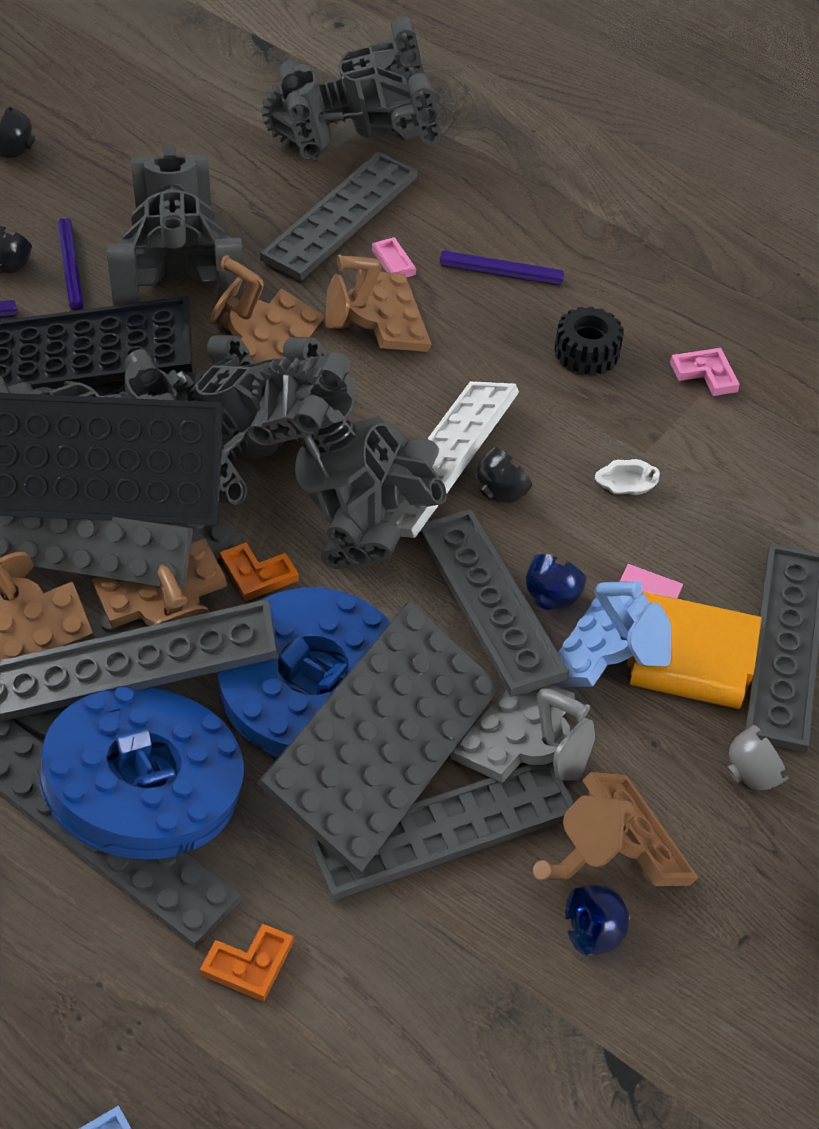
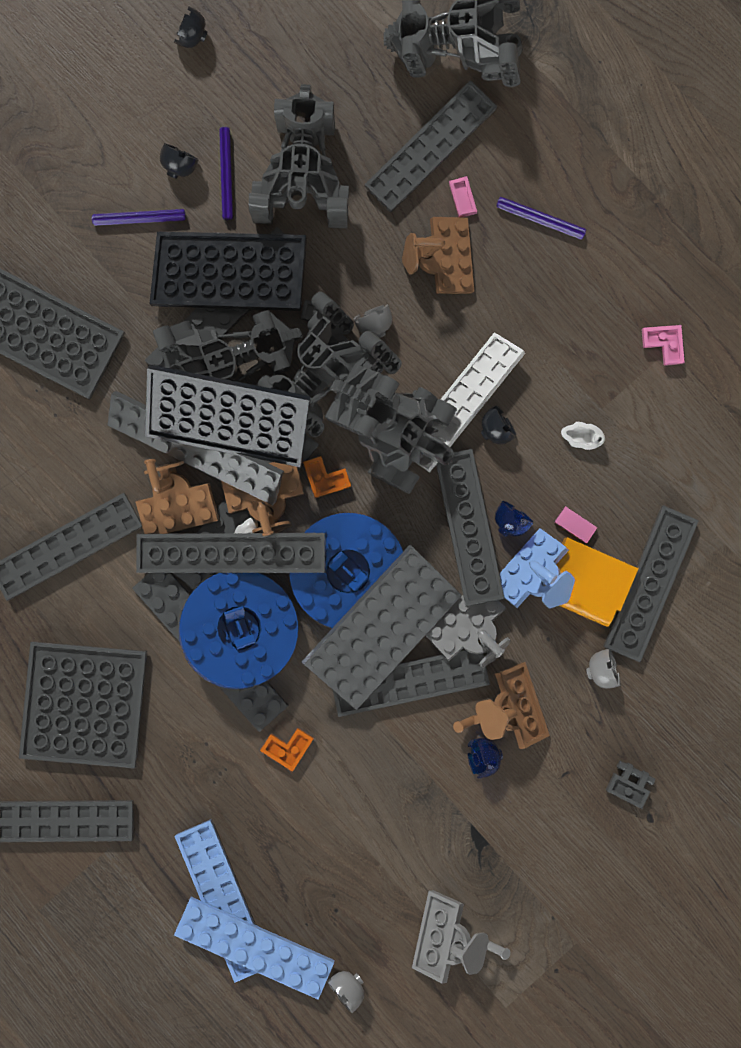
camera: 15 degrees right, 35 degrees up
(261, 324) = (359, 266): medium nougat plate -> none
(588, 340) = (597, 296): black tyre -> none

